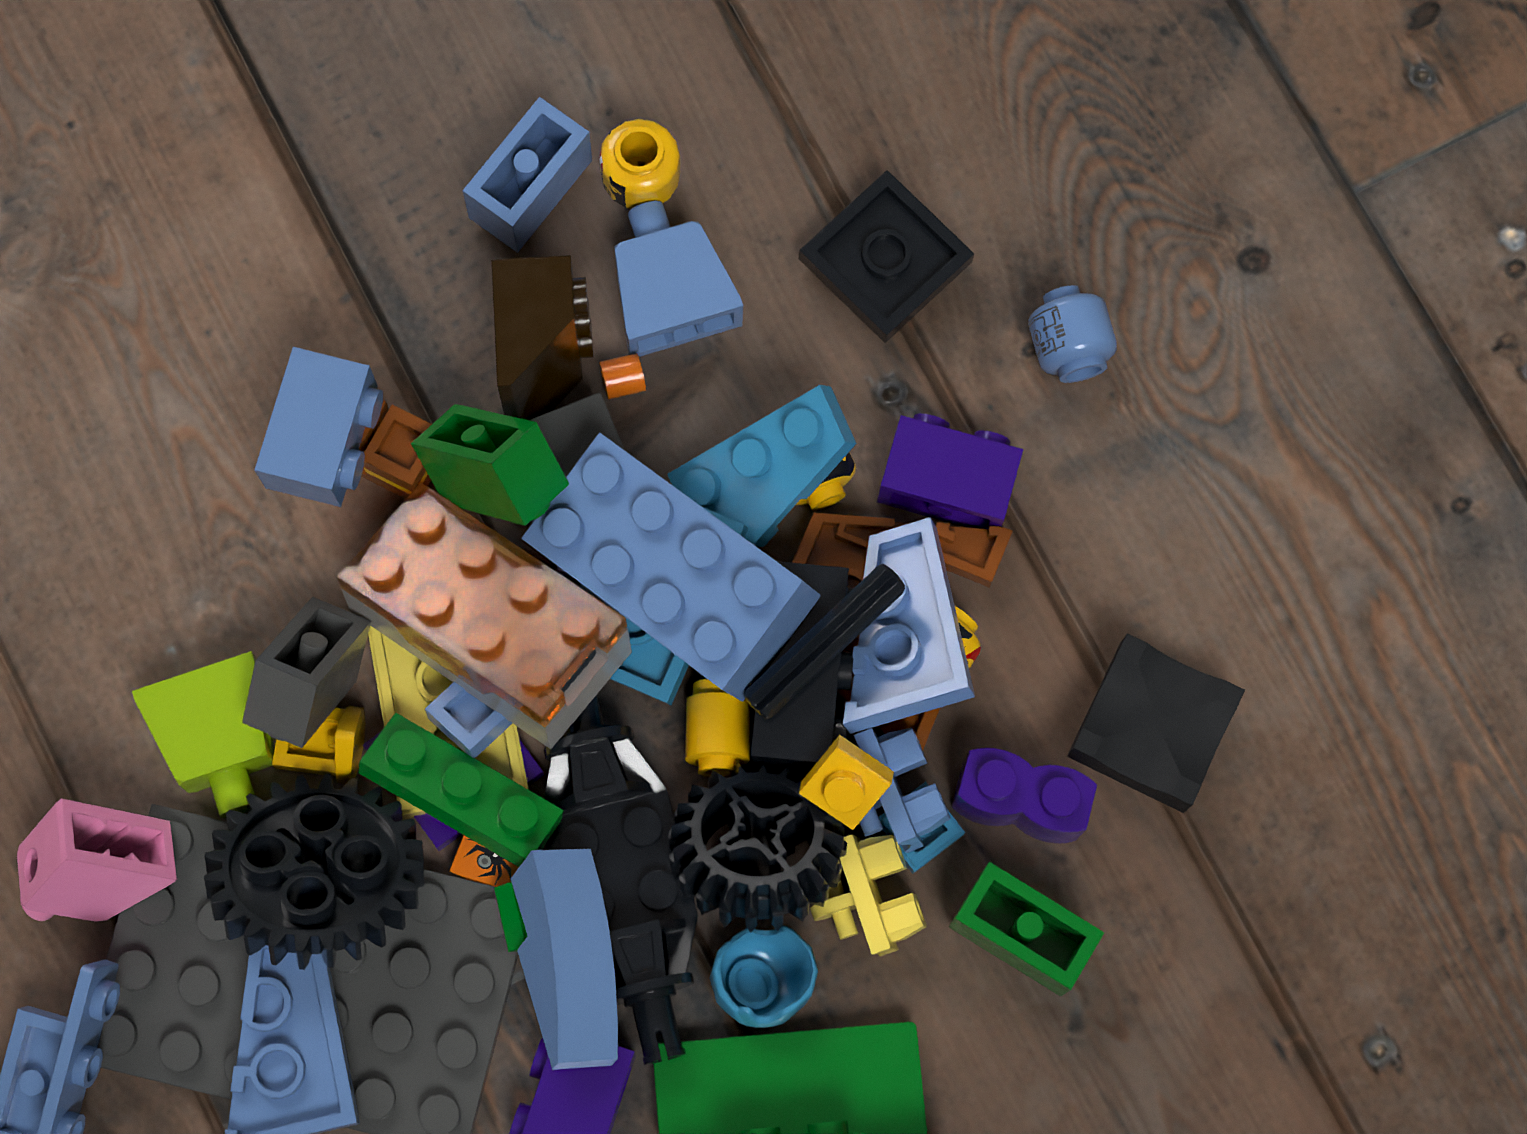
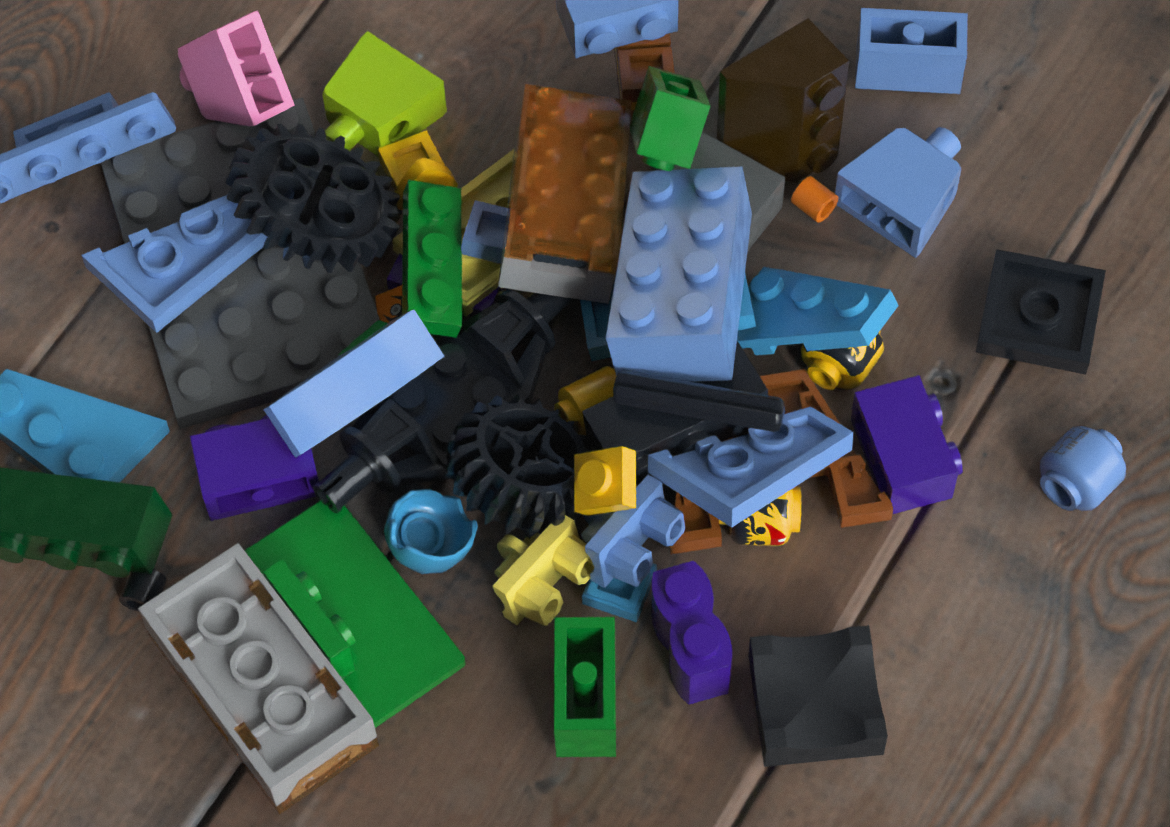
camera: 65 degrees right, 15 degrees down
(306, 672) = (450, 115): dark grey brick -> none
(639, 163) = (977, 112): yellow head -> none

